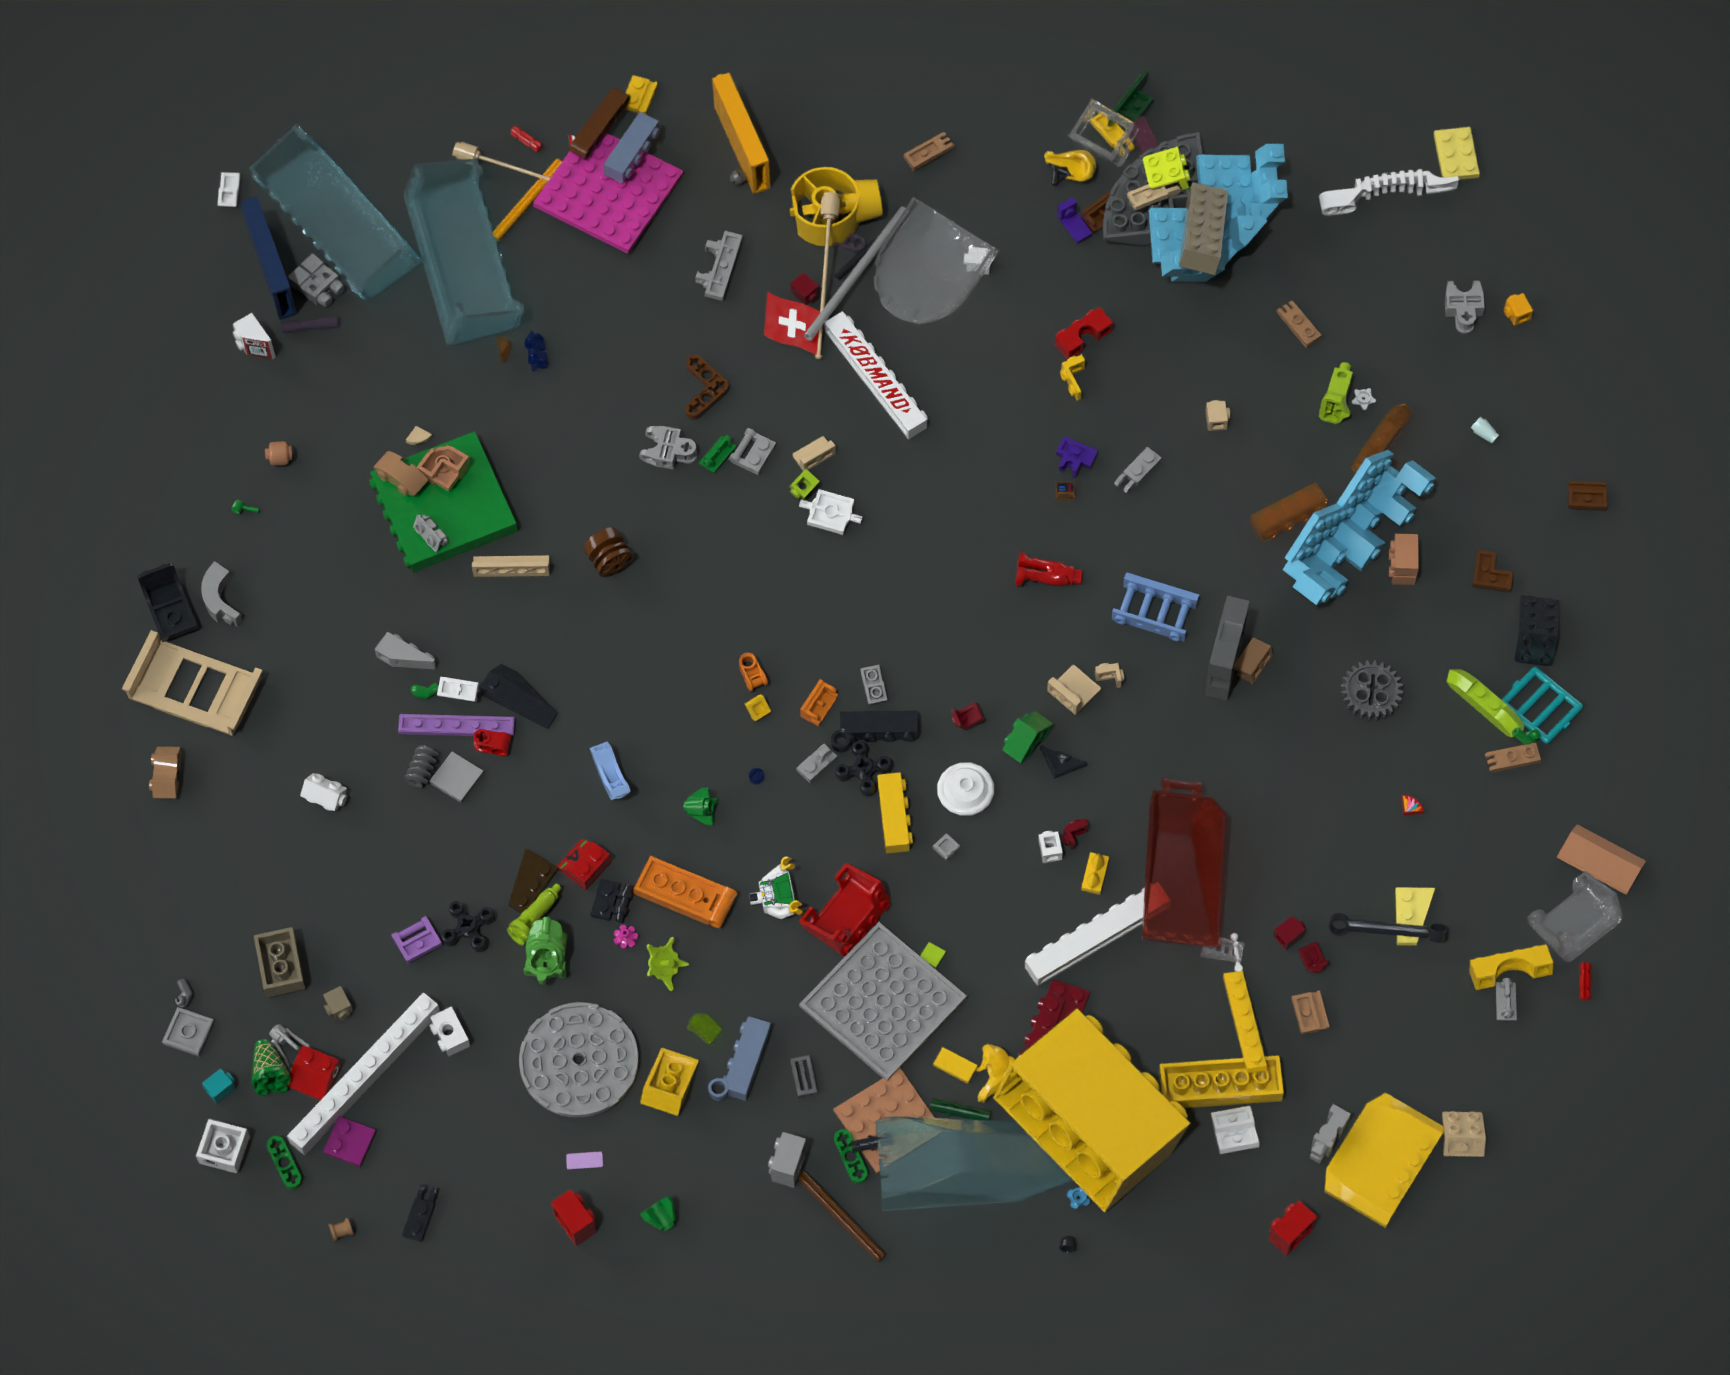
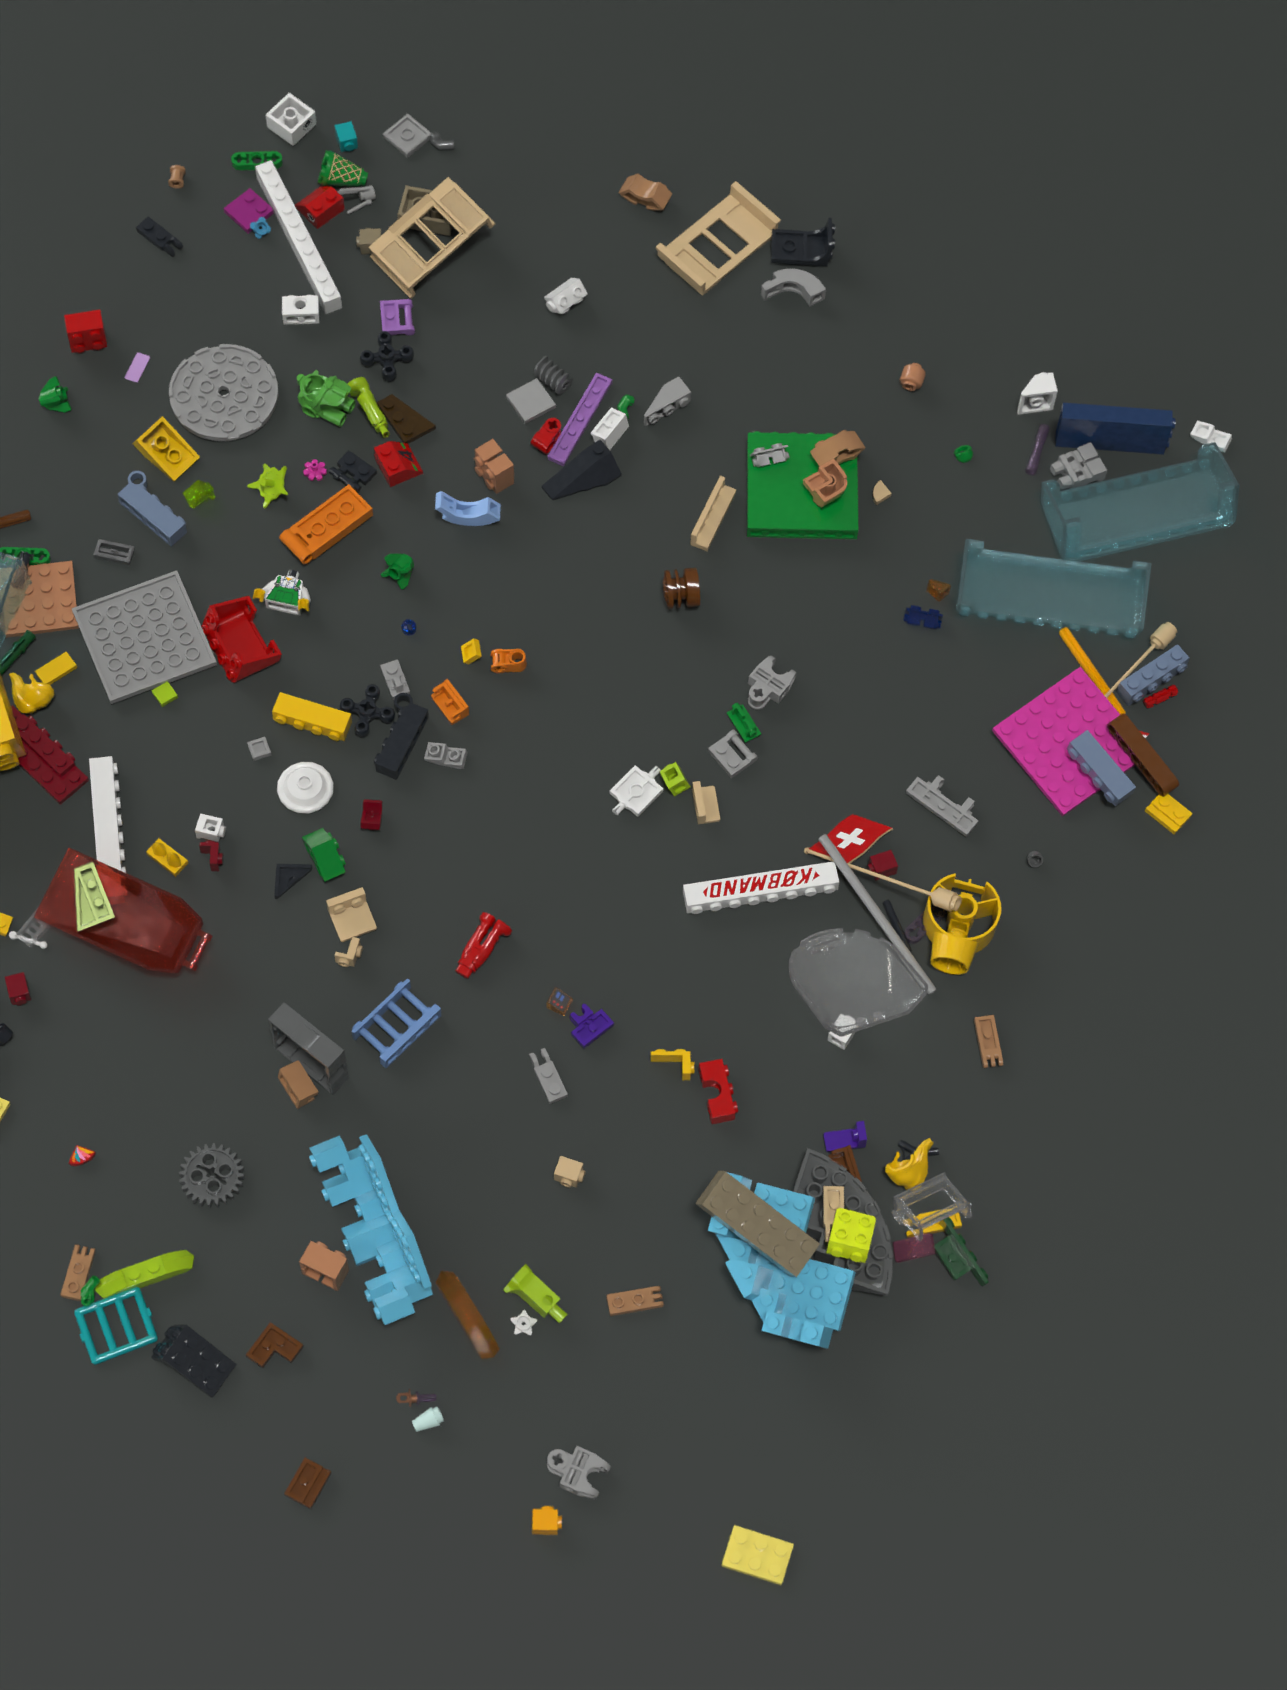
camera: 110 degrees right, 0 degrees up
(239, 505) = (876, 332): green hand -> none
(347, 384) = (965, 456): none -> green piece
(353, 956) = (401, 260): none -> tan piece
(367, 1117) = (265, 228): none -> dark azure plate
(510, 148) = (1153, 675): none -> sand blue brick
(550, 774) = (496, 471): none -> nougat piece
(711, 384) = (820, 747): reddish brown beam -> none
(741, 133) = (1075, 868): light orange brick -> none
(788, 1159) = (42, 501): light grey brick -> none
(1184, 893) = (90, 897): none -> yellowish green wedge
(1288, 511) = (433, 1189): clear orange brick -> none
(1345, 200) = (750, 1413): white piece -> none
(1472, 447) = (415, 1398): none -> piece

